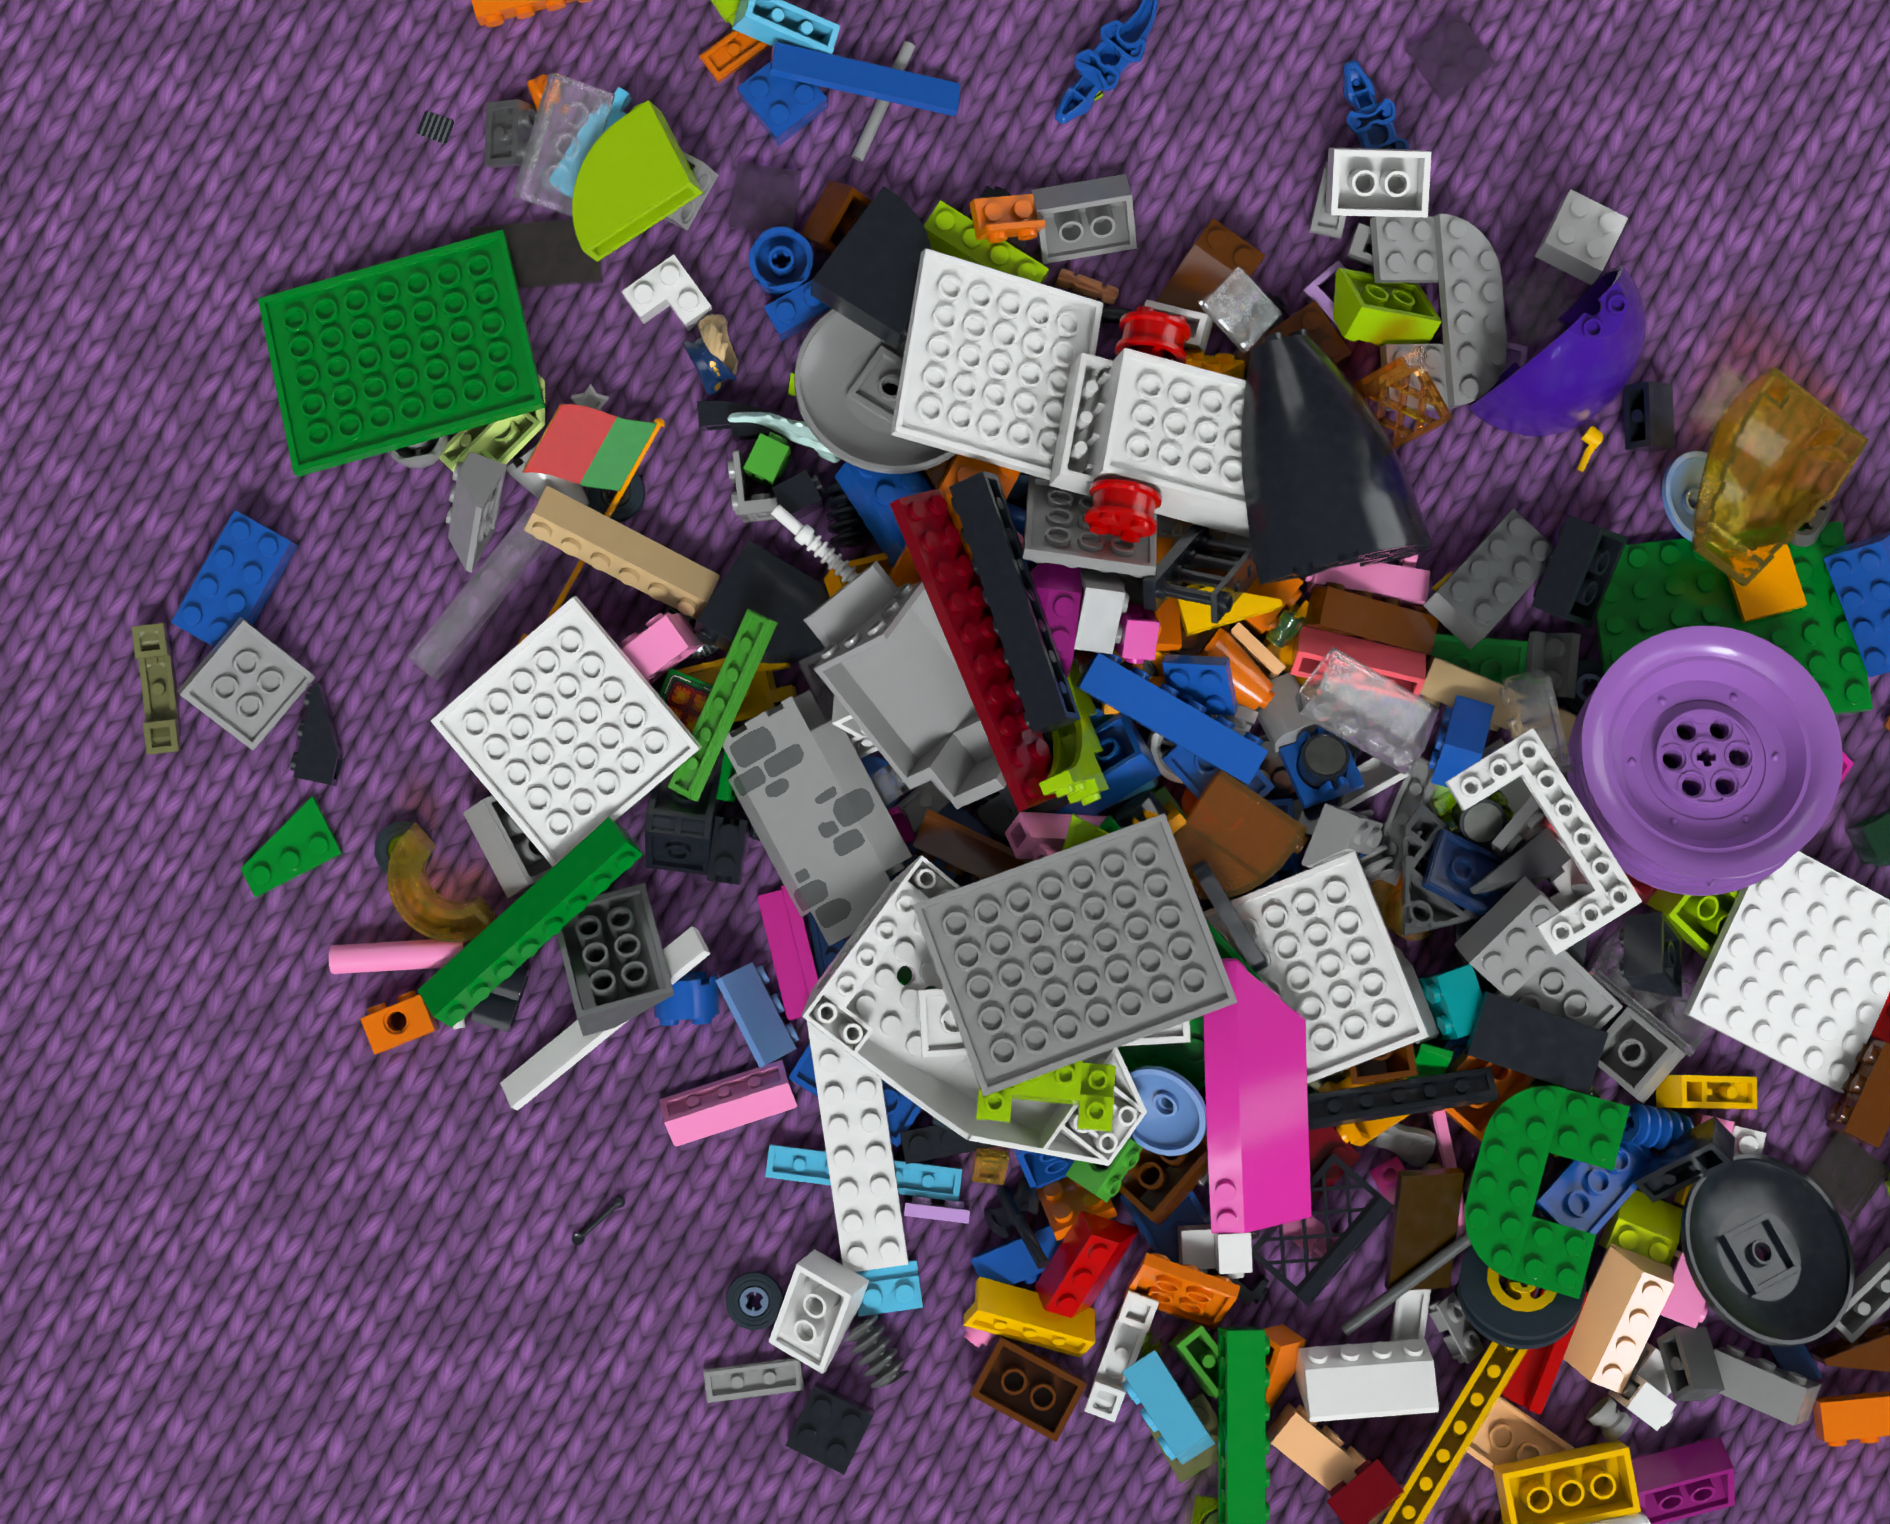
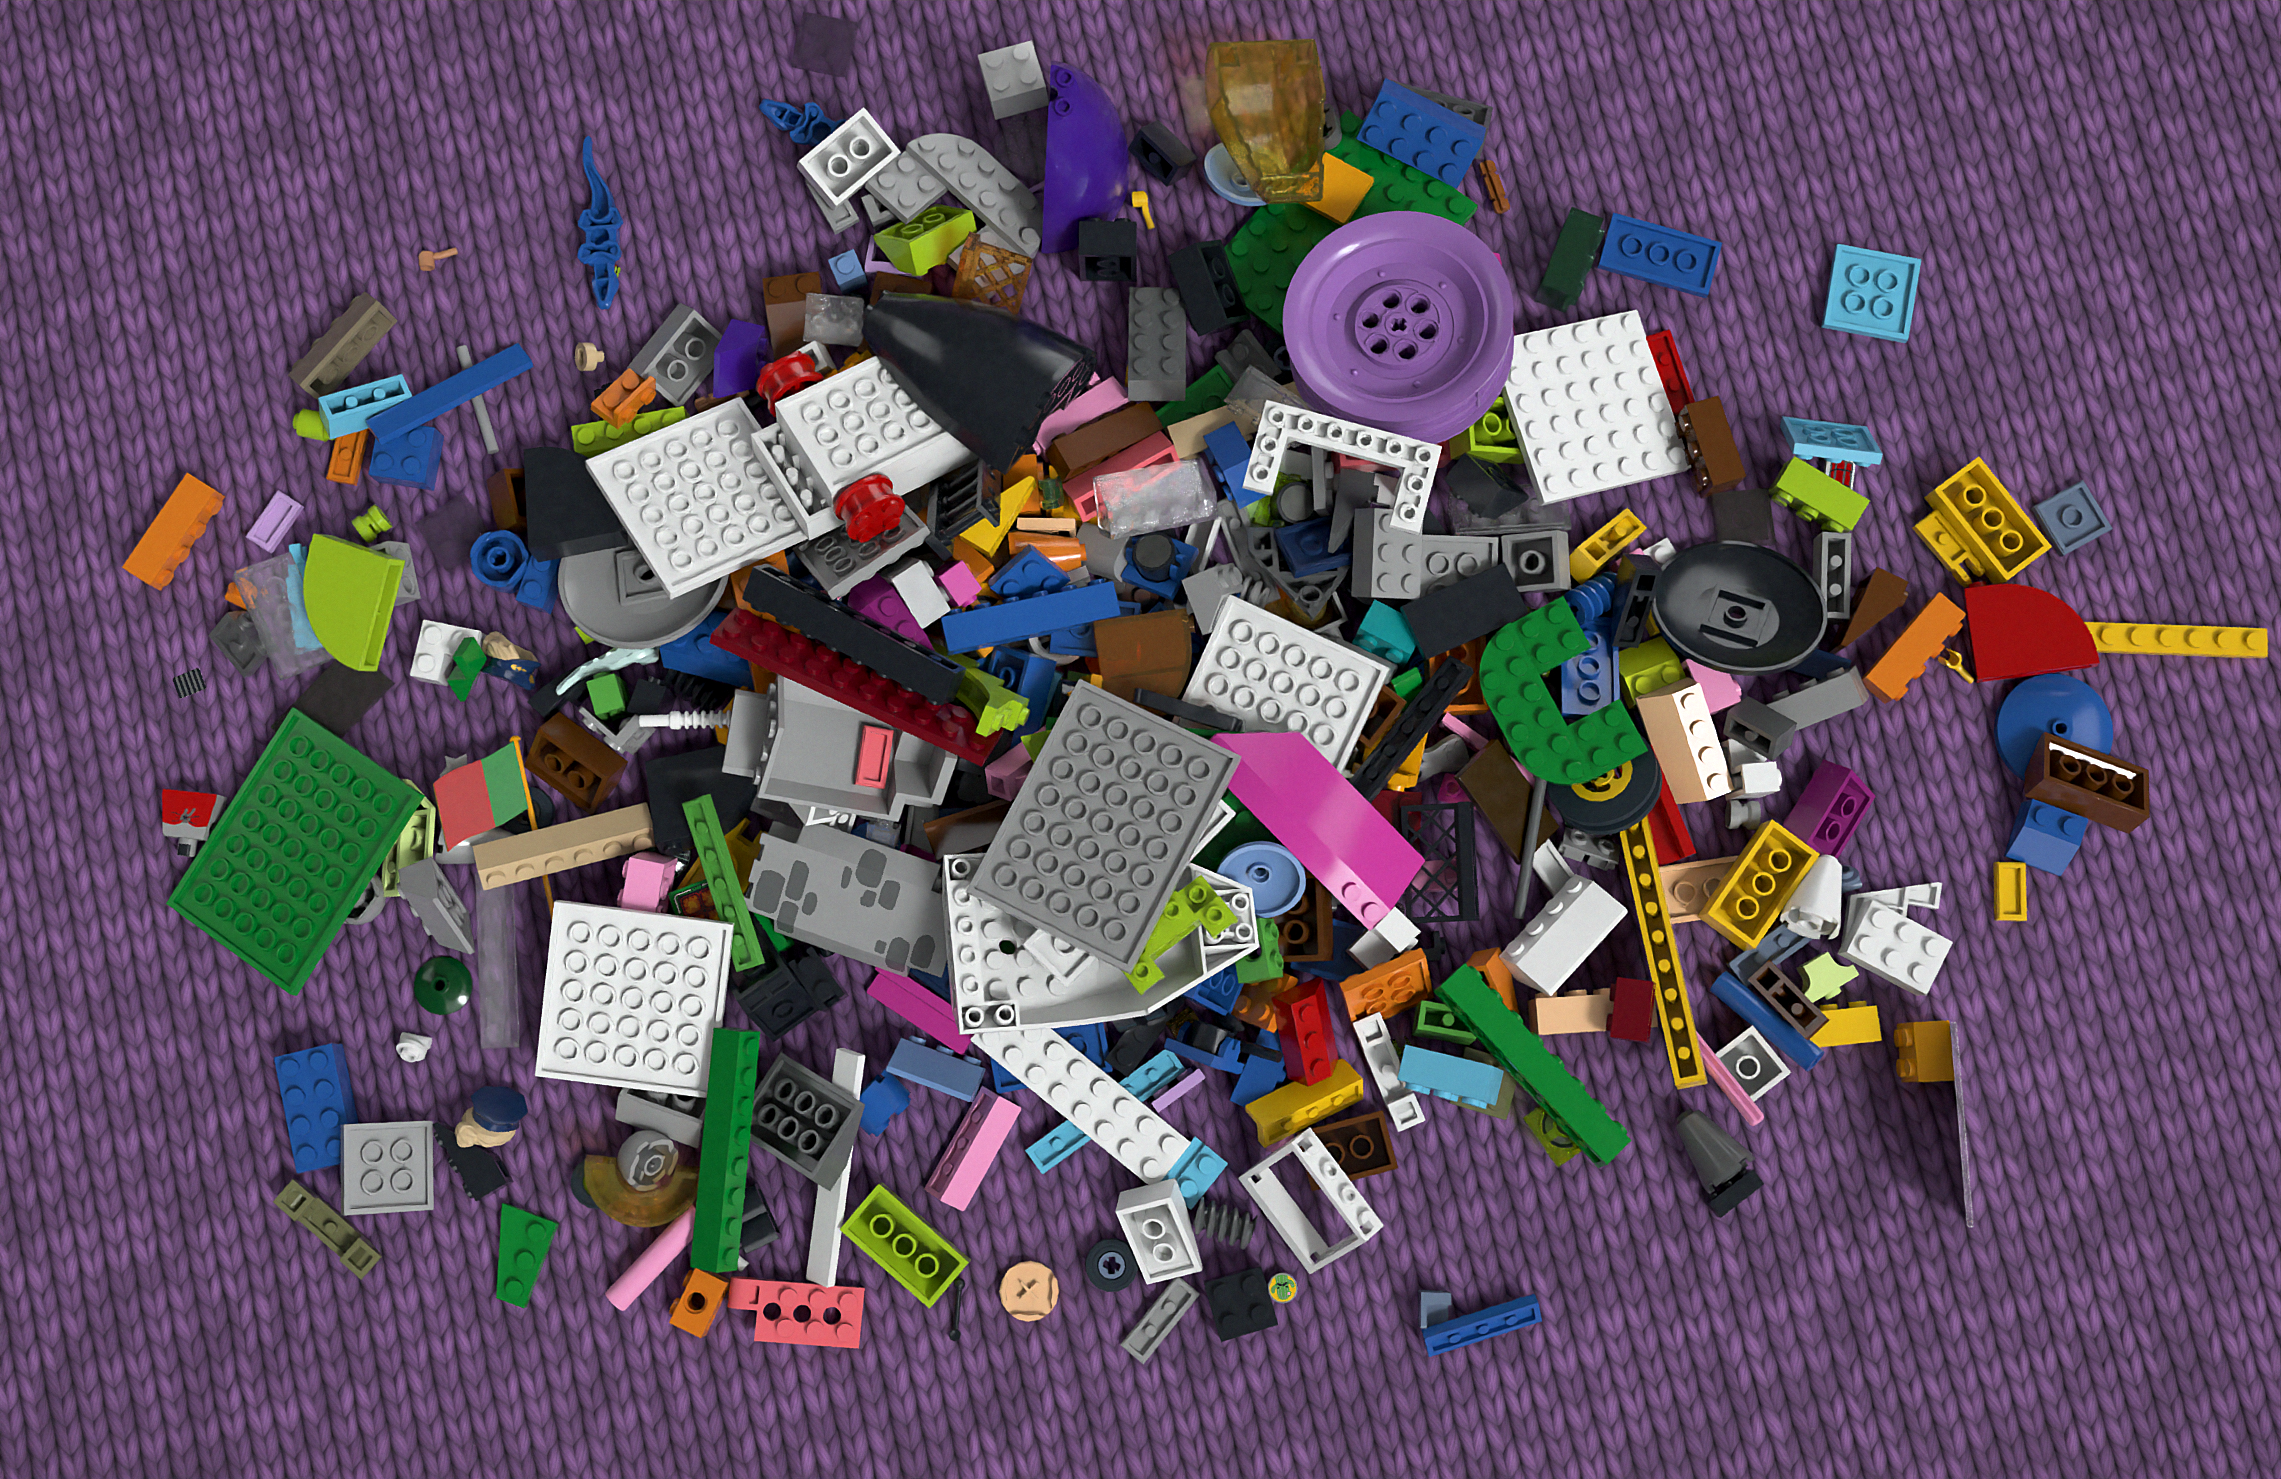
camera: 40 degrees left, 5 degrees down
(339, 245) = (190, 817): none -> torso
(353, 602) = (413, 1046): none -> white plate
(365, 721) = (492, 1117): none -> dark blue piece
(432, 584) = (456, 990): none -> dark green dish
(451, 1059) = (756, 1293): none -> coral hinge
(459, 868) = (646, 1159): none -> light grey cylinder
(604, 1132) = (905, 1244): none -> lime slope
(624, 53) = (274, 521): none -> lavender tile
(669, 1259) = (1029, 1291): none -> light nougat tile
(672, 329) = (469, 662): none -> green slope
(690, 487) = (575, 763): none -> reddish brown slope
(703, 130) = (372, 523): none -> lime wheel
(875, 1446) = (1282, 1287): none -> tile
(931, 1399) = (1288, 1217): none -> white window
(938, 717) = (873, 757): none -> coral tile
(993, 1200) = (1207, 1045): none -> blue piece
(1007, 149) = (587, 356): none -> tan tile
(1132, 271) = (739, 358): none -> dark purple slope
(1290, 276) = (848, 272): none -> medium blue brick
(1413, 951) = (1332, 629): none -> light grey bracket
(1524, 462) = (1108, 250): none -> black brick

